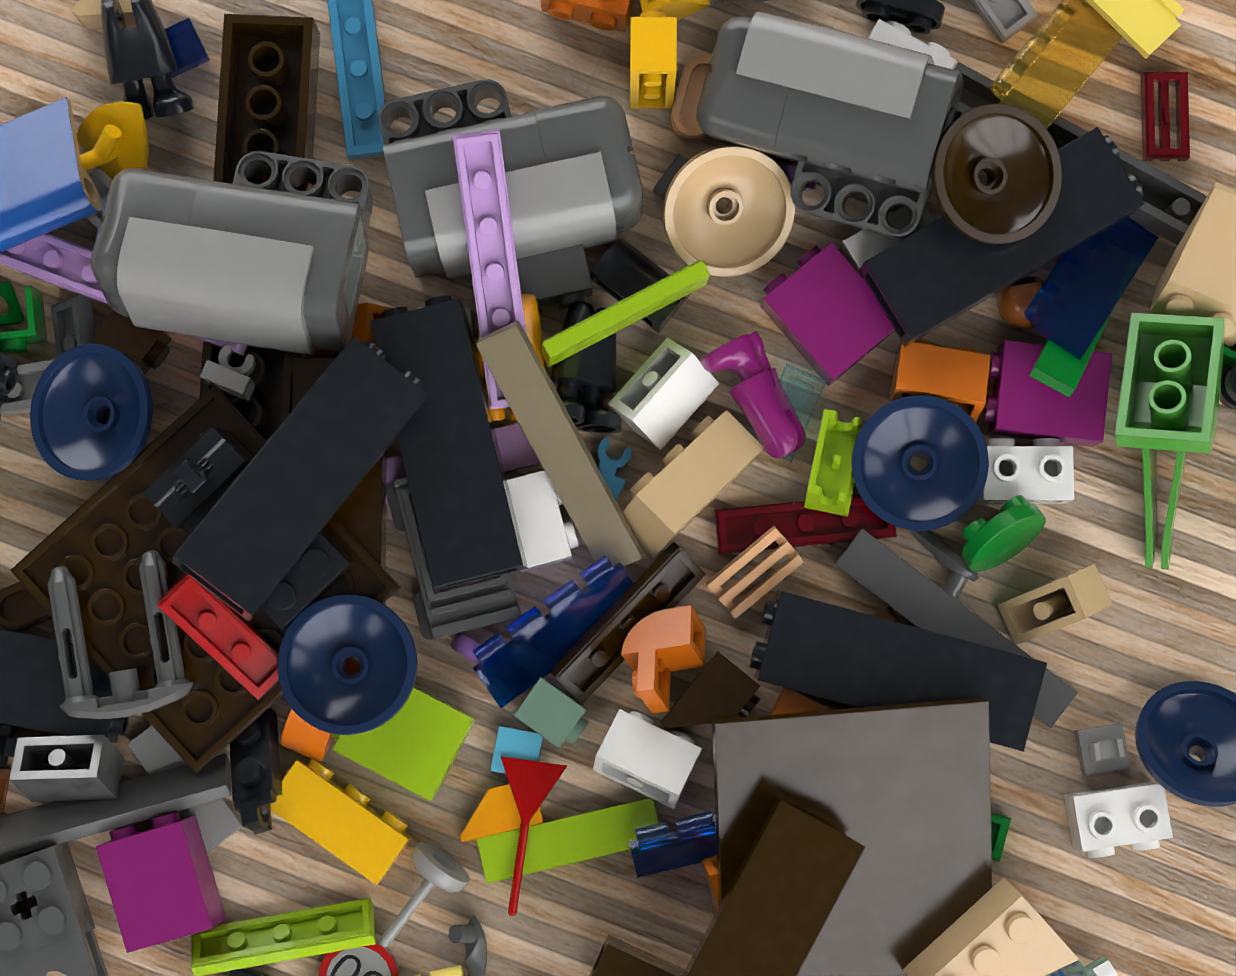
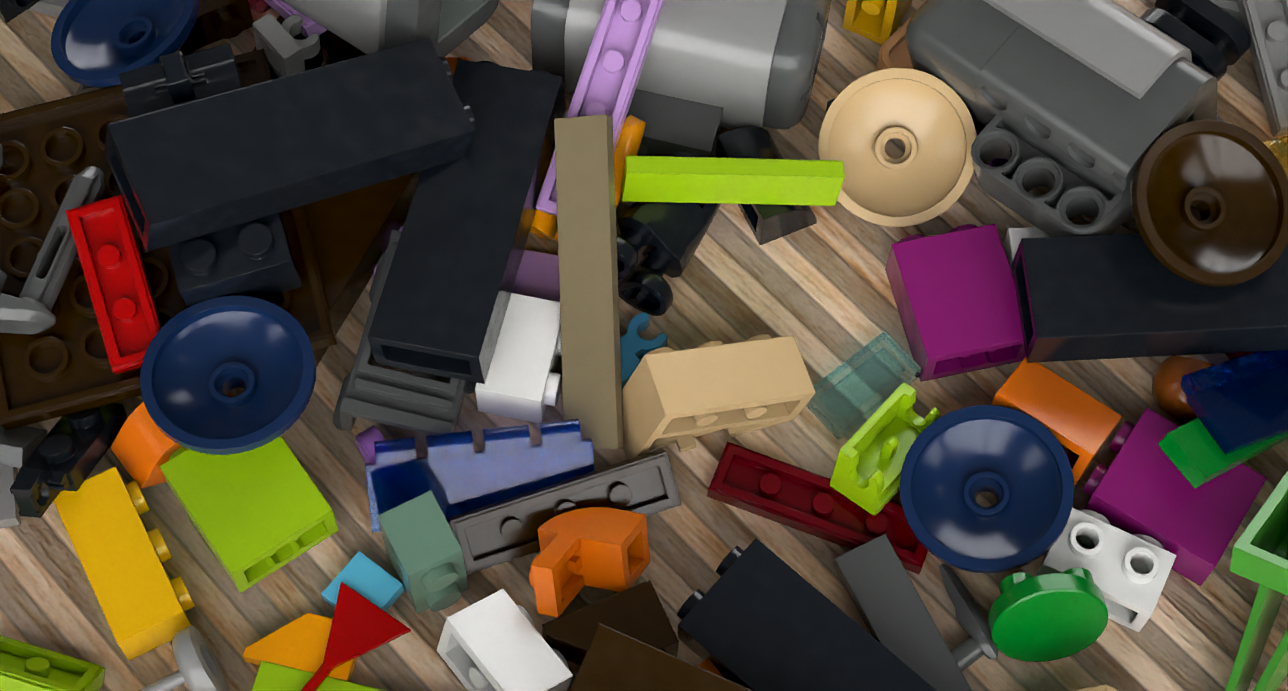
camera: 25 degrees right, 20 degrees down
(662, 400) = (733, 292): white brick -> none
(759, 394) = (837, 332): magenta piece -> none
(766, 584) = (733, 503): light nougat tile -> none

